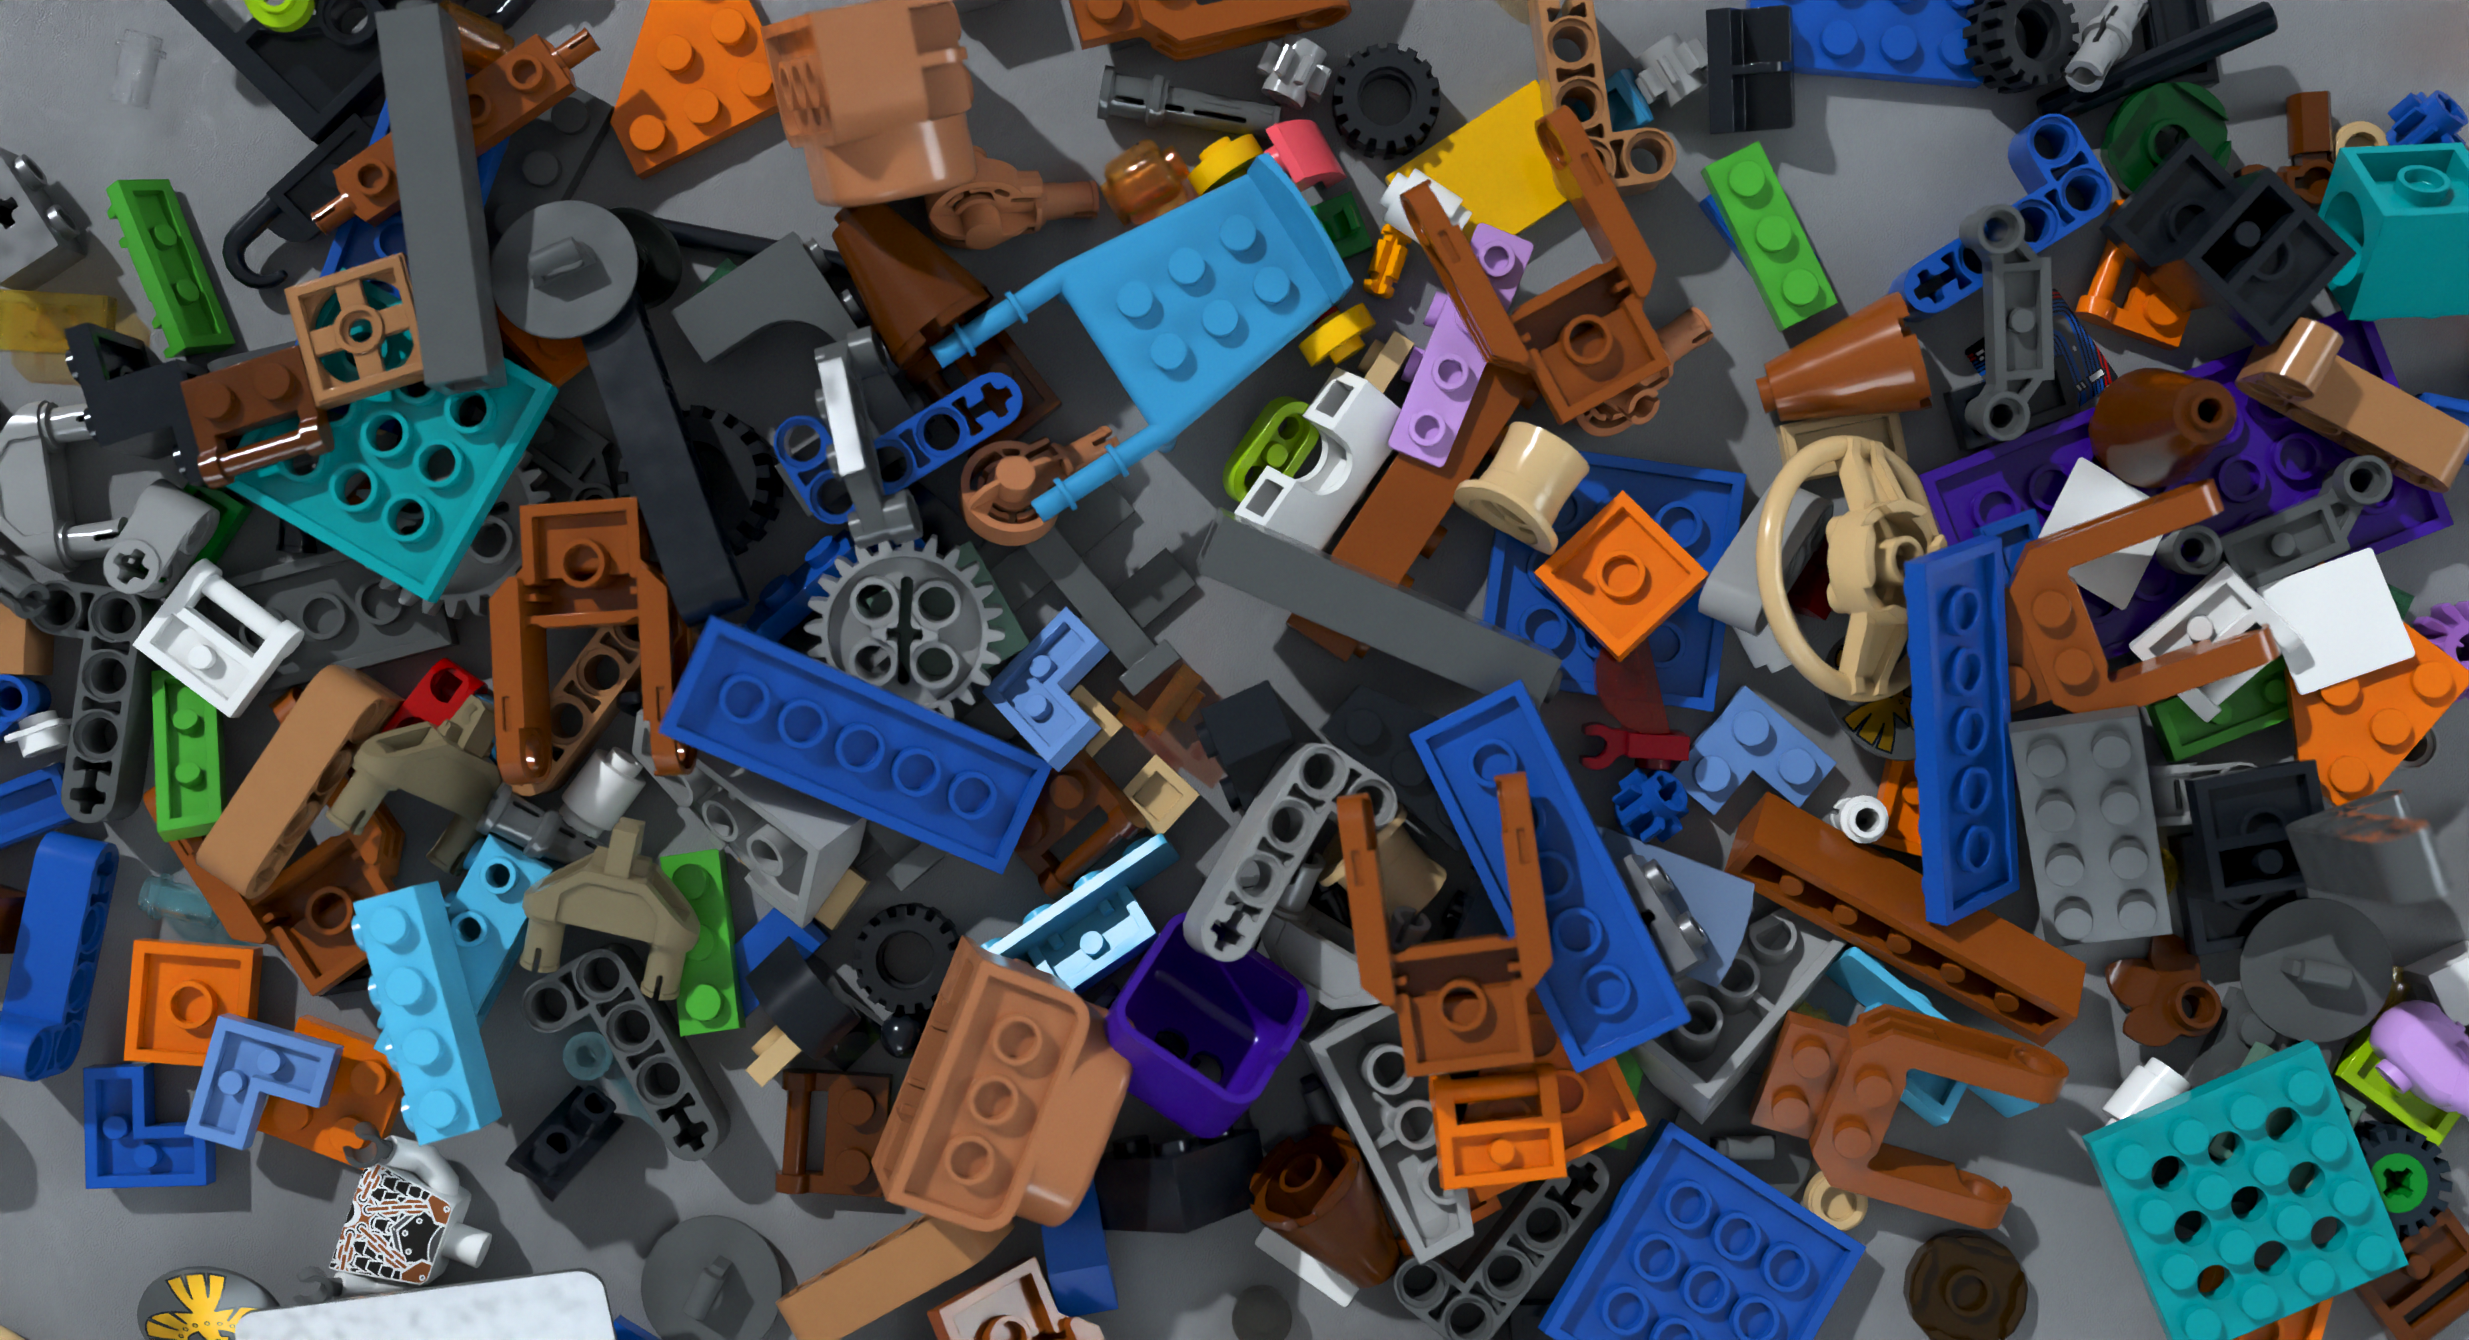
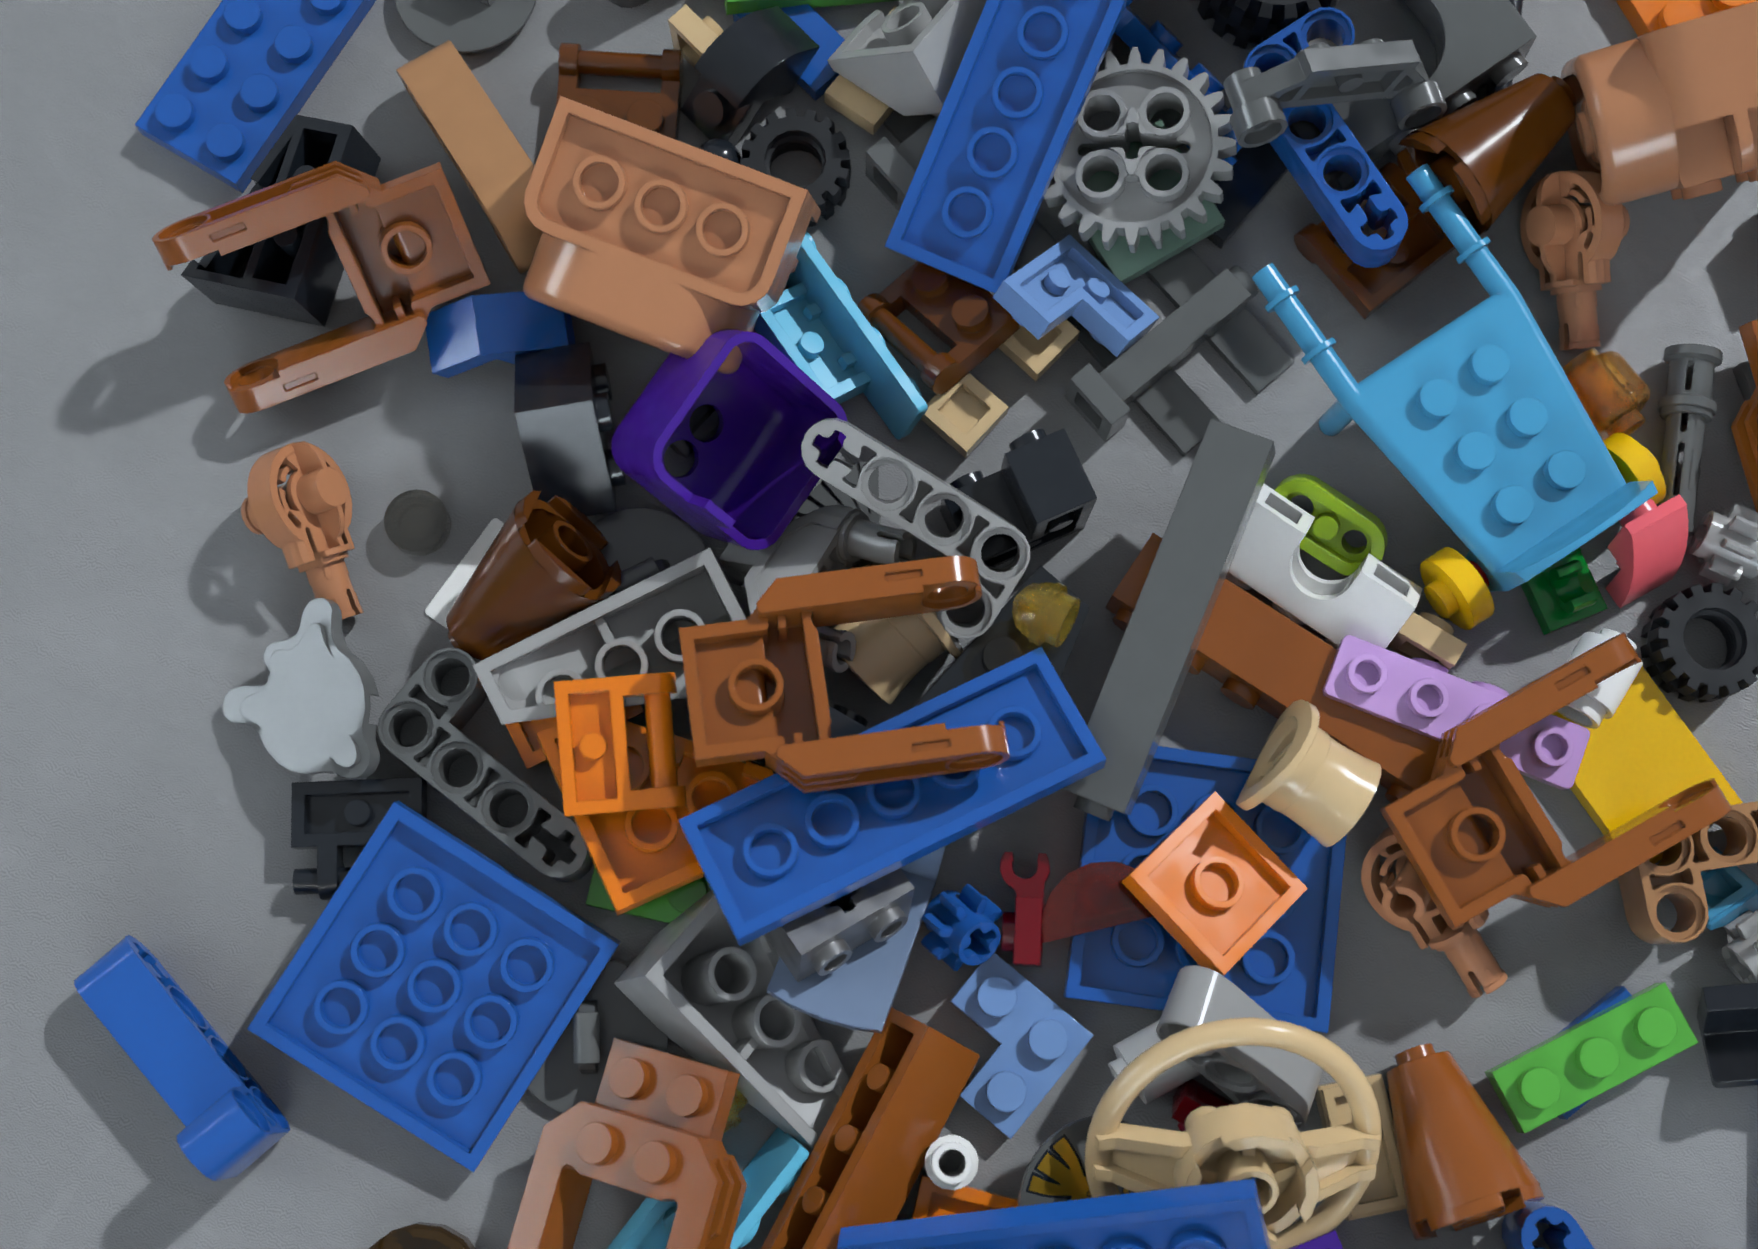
camera: 90 degrees right, 10 degrees down
(1015, 477) = (1296, 247): nougat pin -> none
(1176, 700) = (1054, 413): clear orange bracket -> none
(1376, 730) = (1045, 613): none -> clear yellow plate
(1386, 262) = (1532, 646): light orange piece -> none
(1834, 1205) = (518, 1141): tan tile -> none

